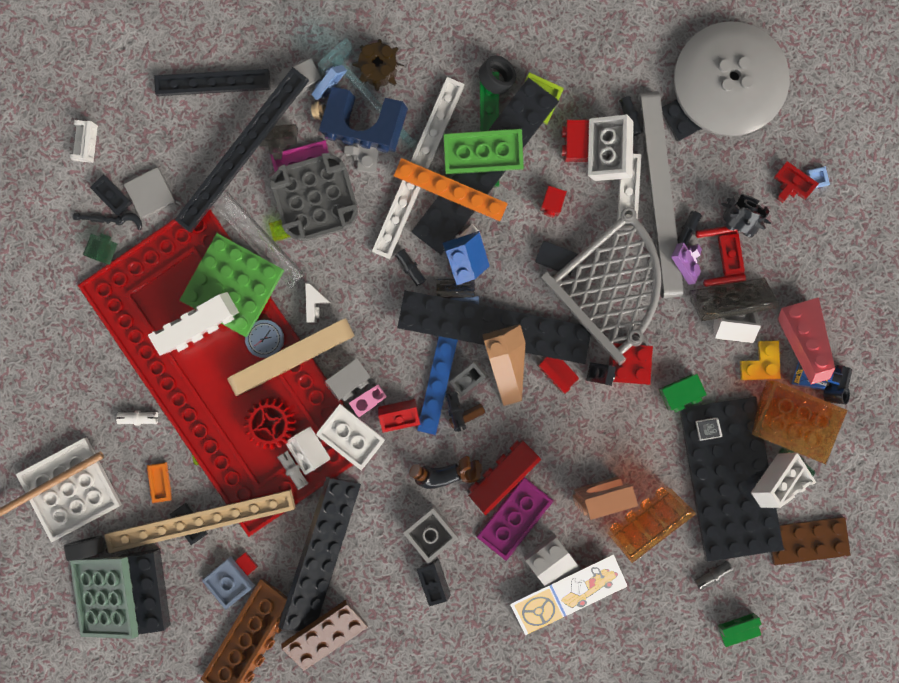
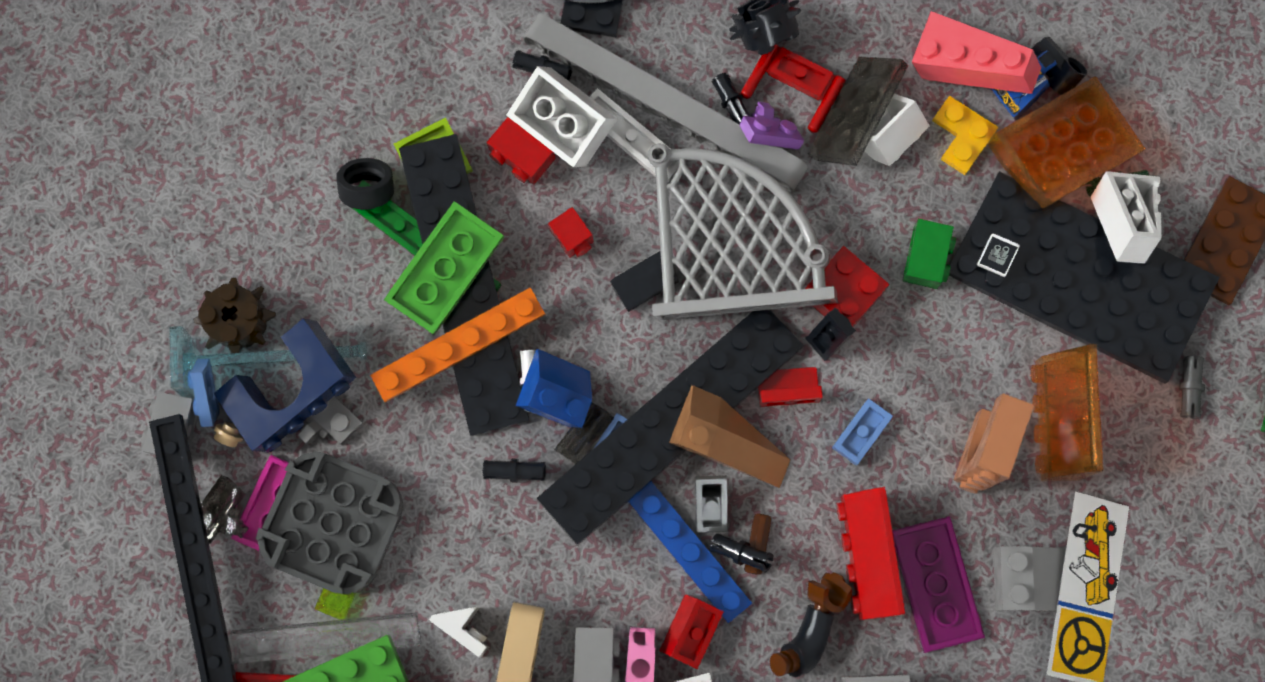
camera: 50 degrees left, 10 degrees down
(212, 82) = (81, 542): black plate -> none
(423, 157) = (389, 347): white plate -> none
(563, 426) = (862, 432): none -> medium blue plate

